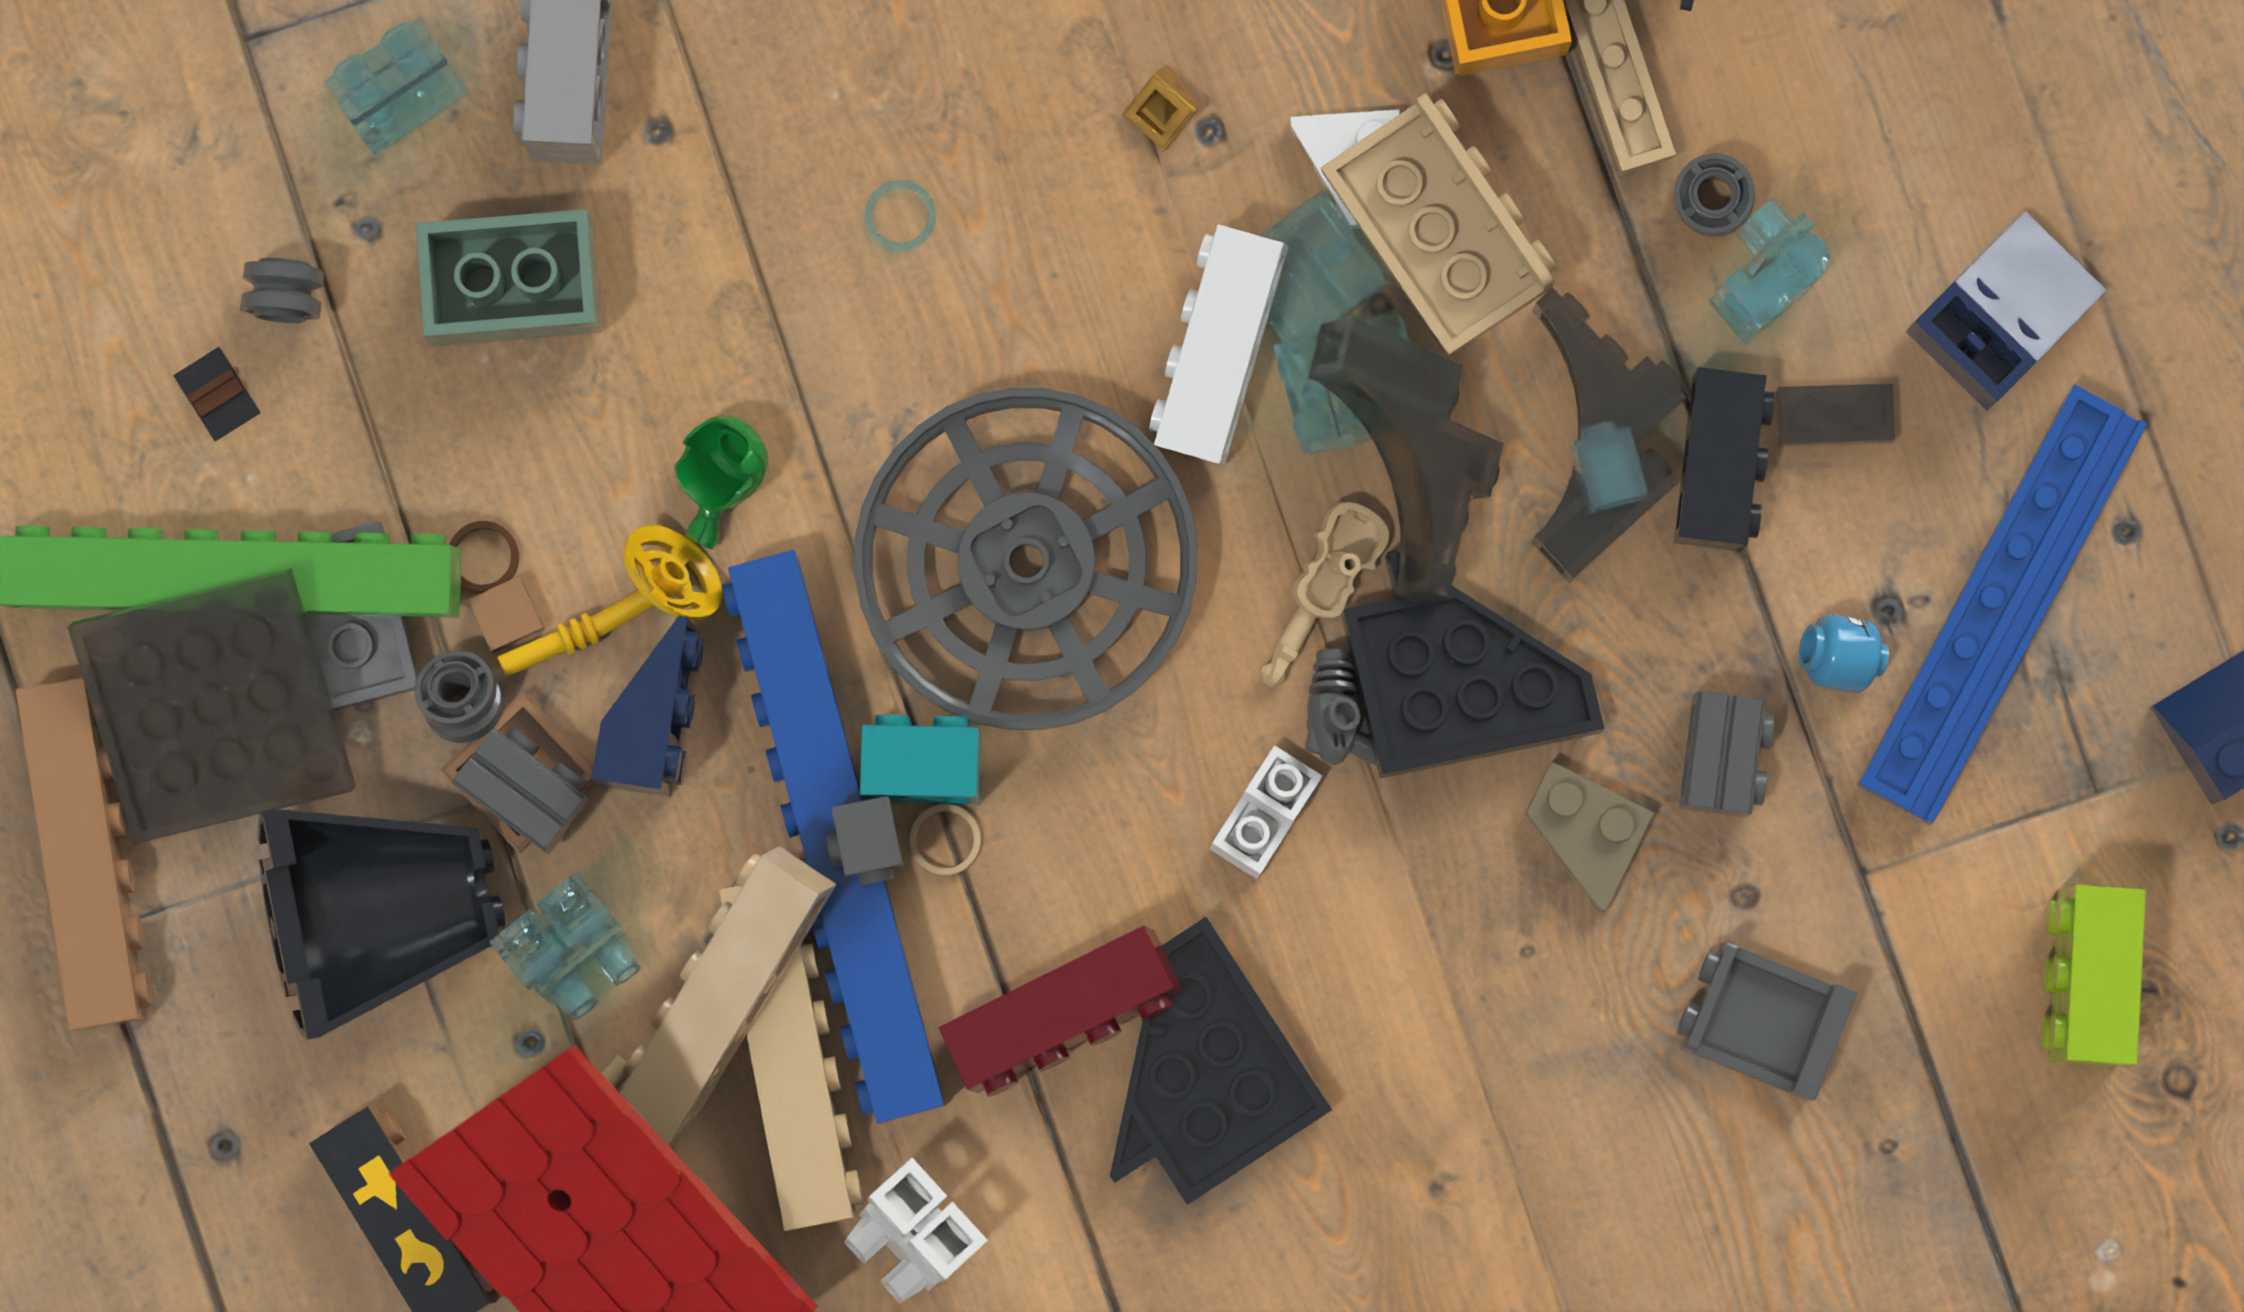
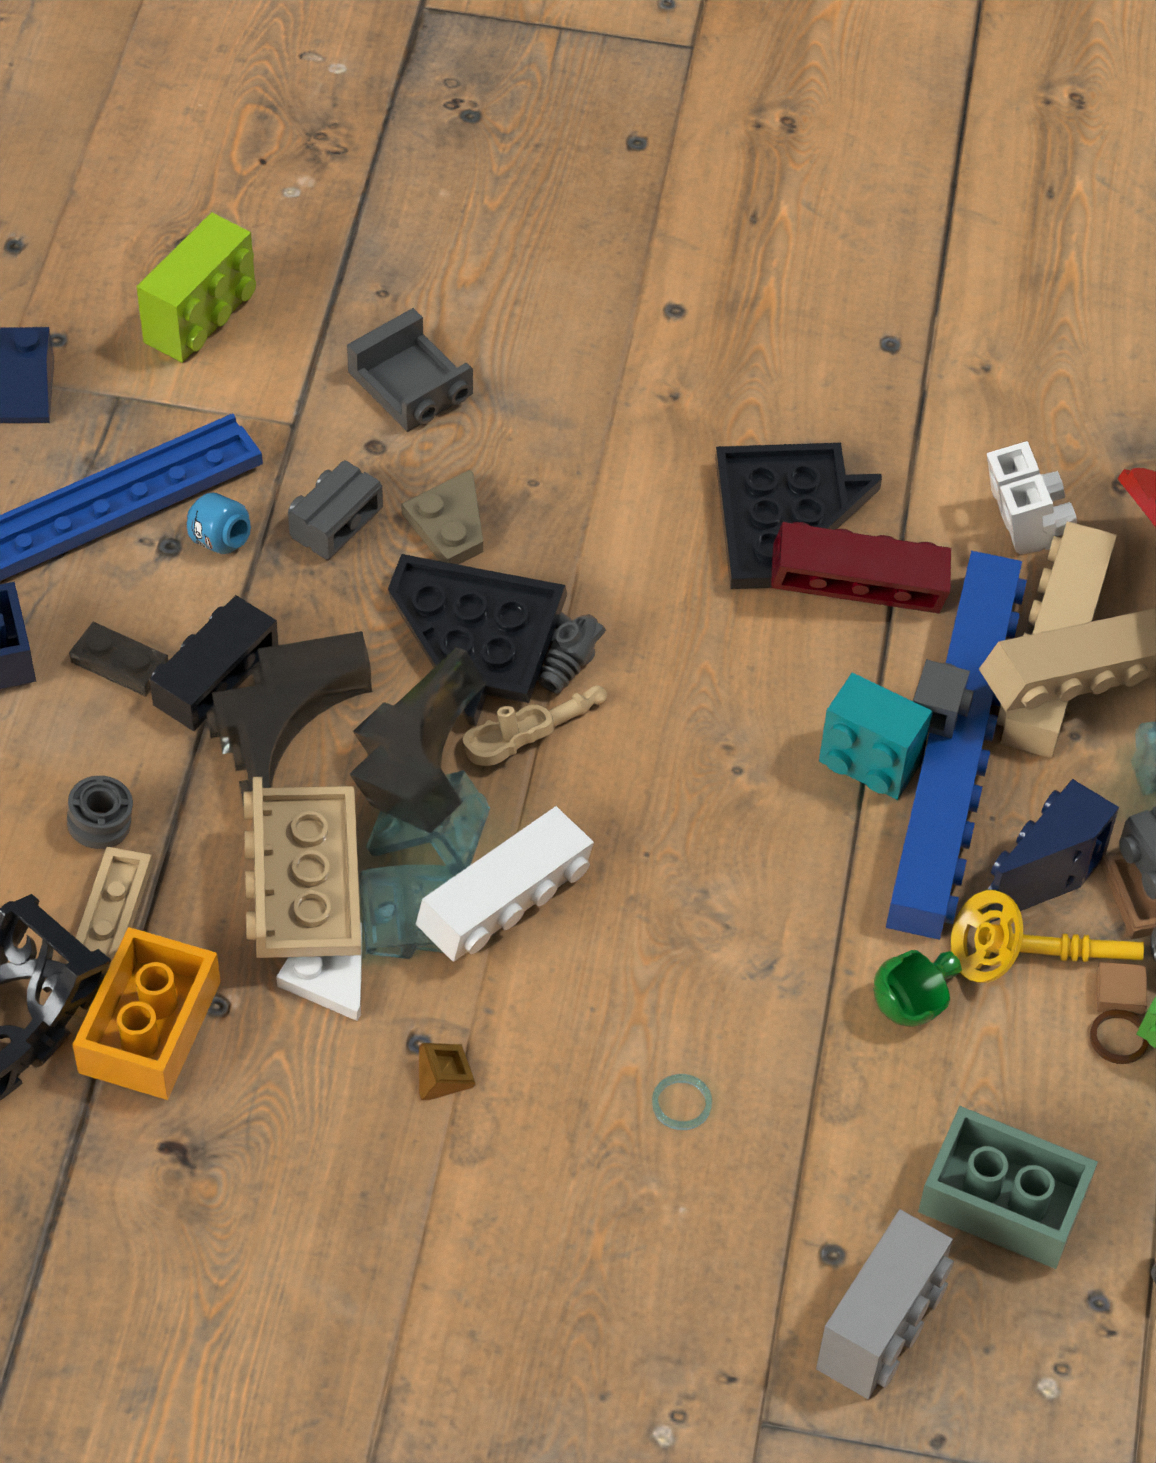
camera: 155 degrees left, 30 degrees down
(395, 85) = (1029, 1380): clear light blue bracket -> none
(1017, 522) = (729, 807): dark grey dish -> none
(1265, 812) = (651, 627): white slope -> none
(1607, 467) = (296, 663): clear light blue brick -> none
(1783, 269) = (100, 729): clear light blue hips -> none

